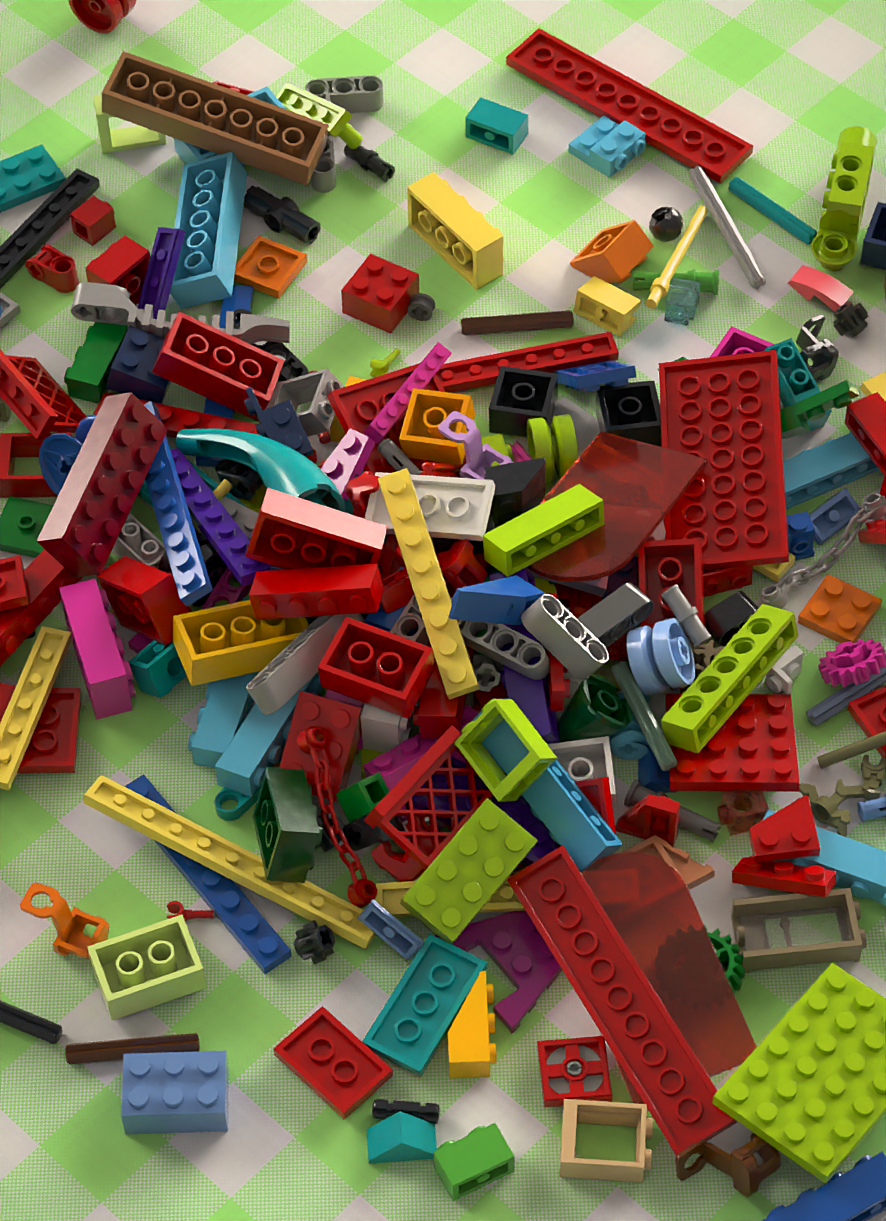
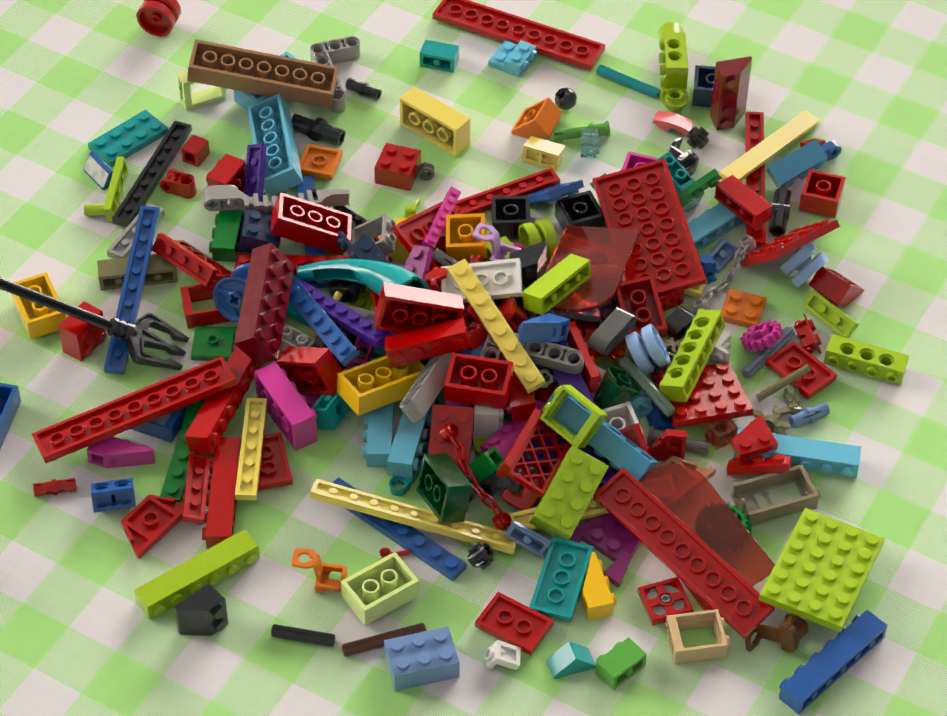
camera: 15 degrees left, 5 degrees down
(300, 1112) = (504, 655): none -> white bracket
(316, 108) = (328, 59): lime piece -> none
(383, 1109) = (553, 644): black axle -> none
(517, 322) = (489, 171): reddish brown axle -> none
(564, 636) = (590, 343): light grey beam -> none
(661, 285) = (575, 135): light yellow bar -> none
(686, 615) = (661, 327): light grey pin -> none
(727, 227) = (603, 95): light grey axle -> none

